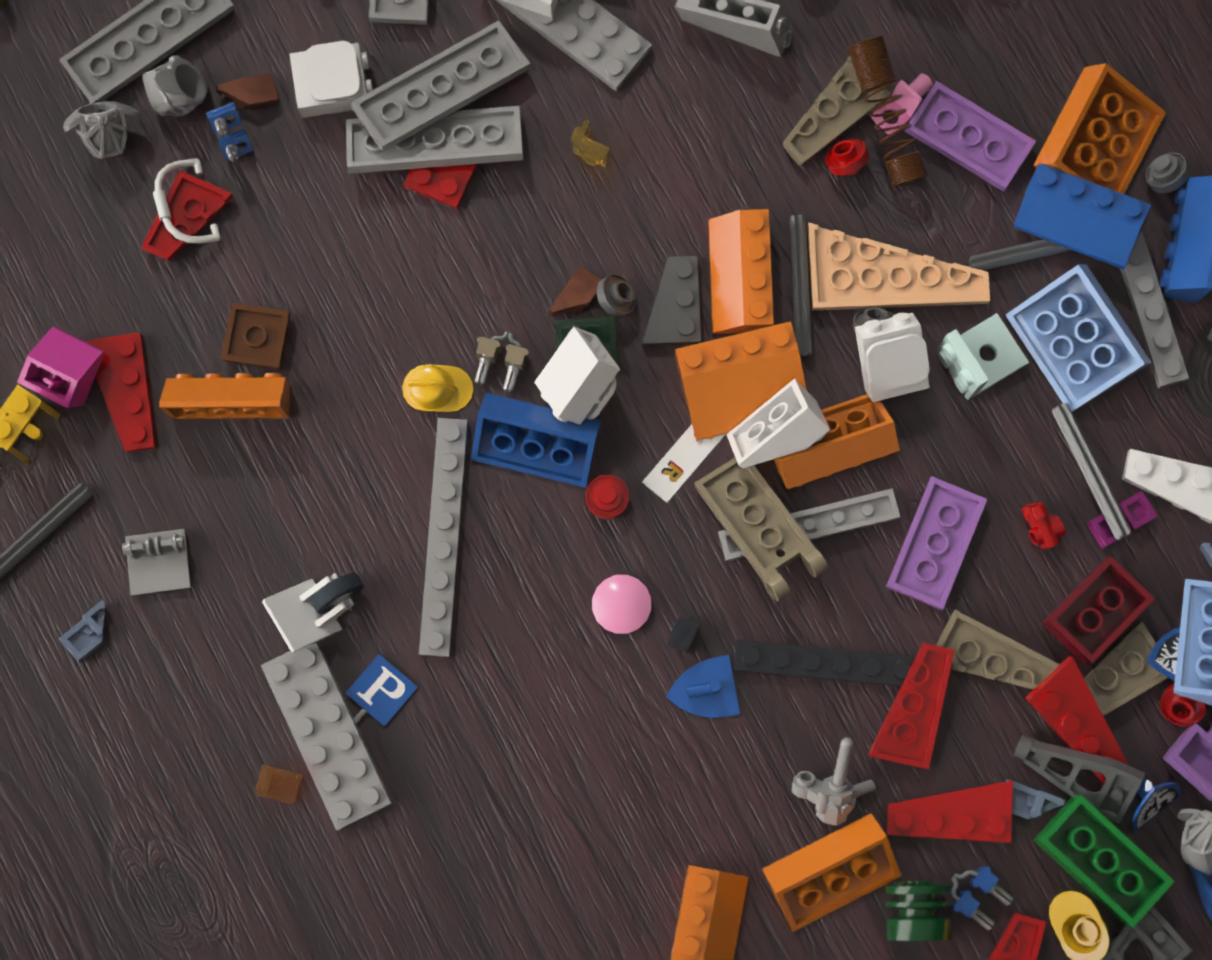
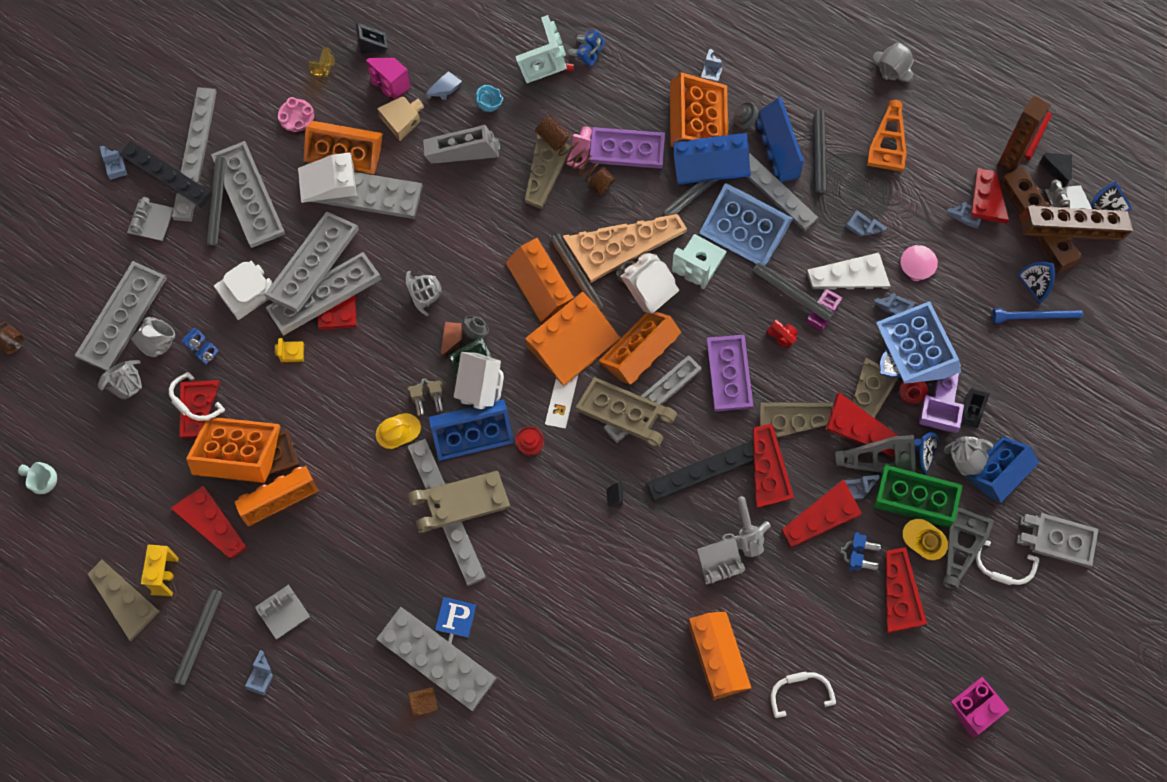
camera: 30 degrees left, 10 degrees down
(61, 368) = (167, 526): dark pink slope -> none
(203, 304) = (234, 449): none -> orange slope
(250, 91) = (200, 318): copper slope -> none
(311, 610) = (391, 591): white plate -> none
(348, 199) = (289, 351): none -> yellow bracket
(470, 534) = (460, 500): none -> dark tan hinge
(570, 206) = (423, 290): none -> light grey piece
(590, 151) = (416, 256): clear yellow bracket -> none
(621, 604) = (570, 496): bright pink dish -> none
(676, 306) = (512, 317): dark grey wing -> none
(707, 689) = (645, 519): blue shield -> none
(777, 806) = (720, 560): none -> light grey hinge
(779, 427) = (607, 351): white slope -> none
(832, 872) = (772, 582): orange slope -> none
(847, 157) = (565, 191): red plate -> none
(918, 912) = (830, 574): dark green wheel -> none
(1098, 611) = (838, 363): dark red brick -> none
(1157, 76) = (712, 68): none -> sand blue slope

